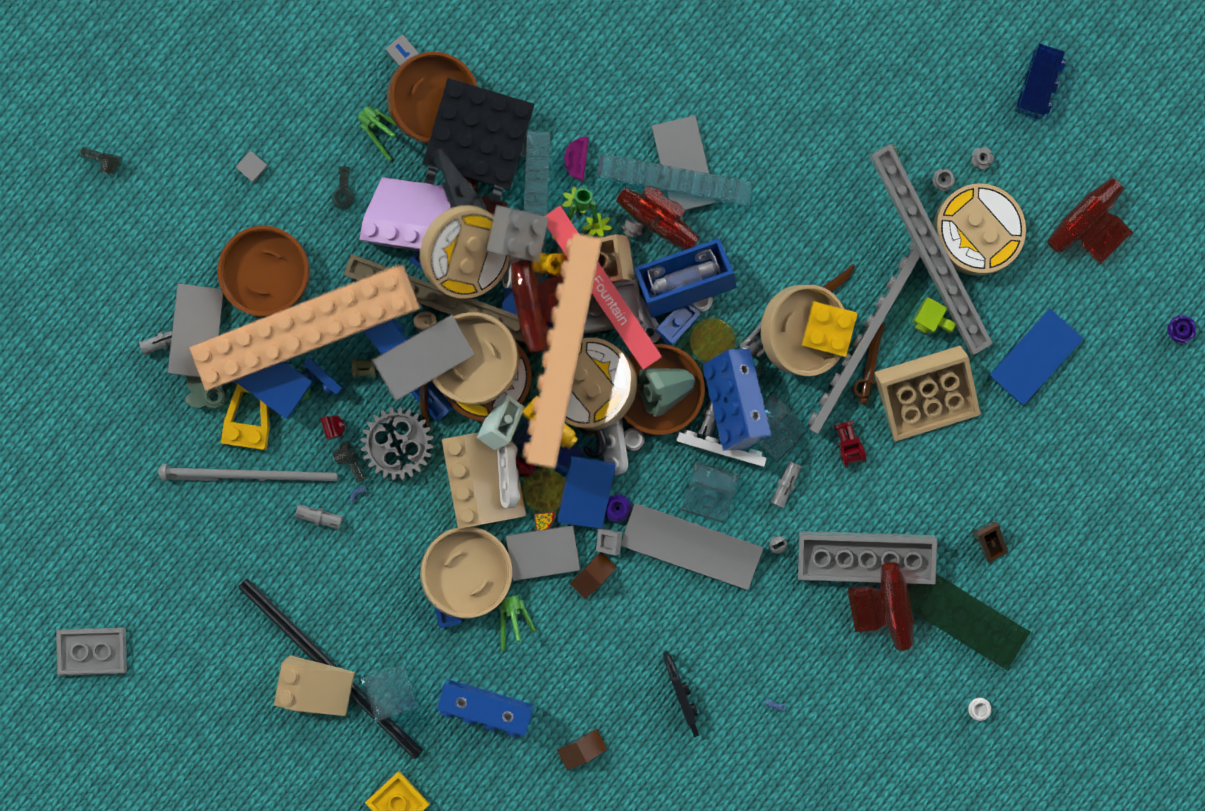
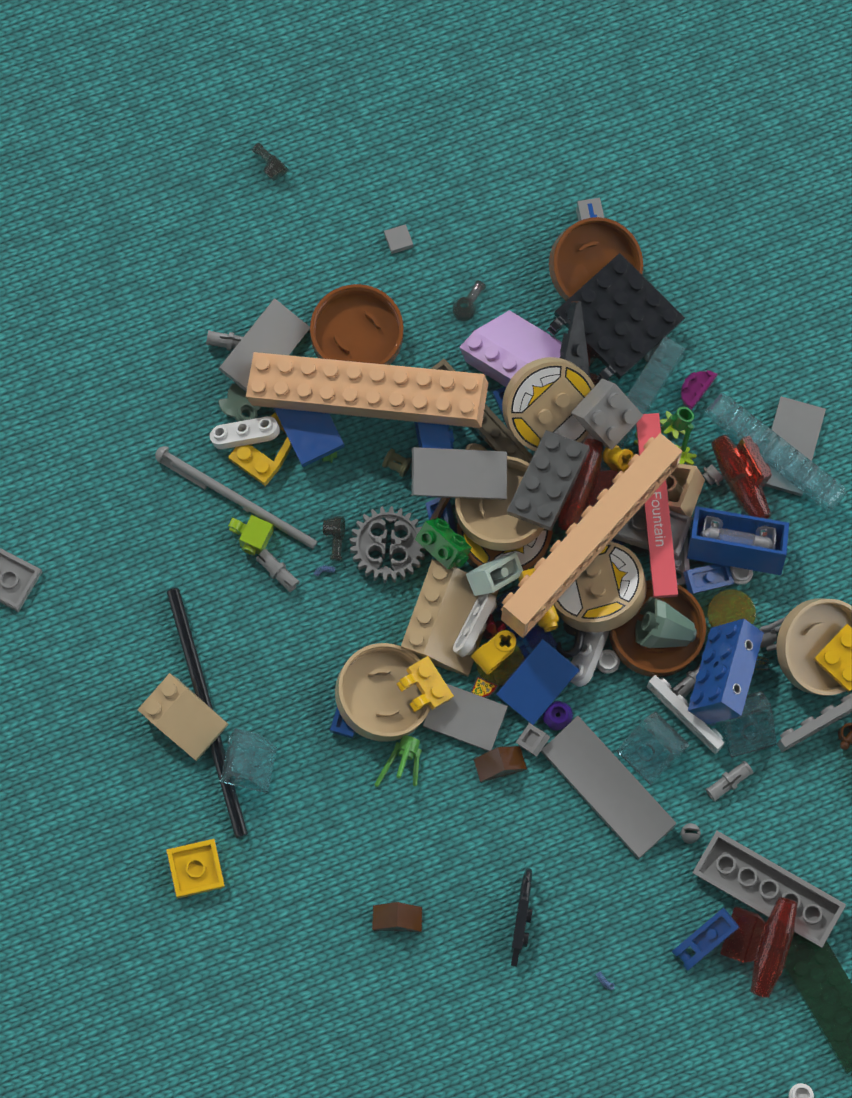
camera: 25 degrees right, 15 degrees down
(230, 414) = (253, 432): none -> white plate
(282, 499) = (254, 534): none -> lime brick
(315, 371) = (352, 441): blue plate -> none
(332, 426) = (338, 497): dark red plate -> none
(371, 119) = (530, 256): bright green plant -> none
(443, 422) = (443, 543): none -> green brick
(485, 707) = (331, 823): blue piece -> none
(500, 546) = (429, 682): none -> yellow plate
(501, 320) = (548, 480): none -> dark grey plate
(537, 492) = (492, 654): none -> yellow piece
(838, 628) = (706, 938): none -> blue plate
(849, 445) = (809, 780): dark red connector -> none

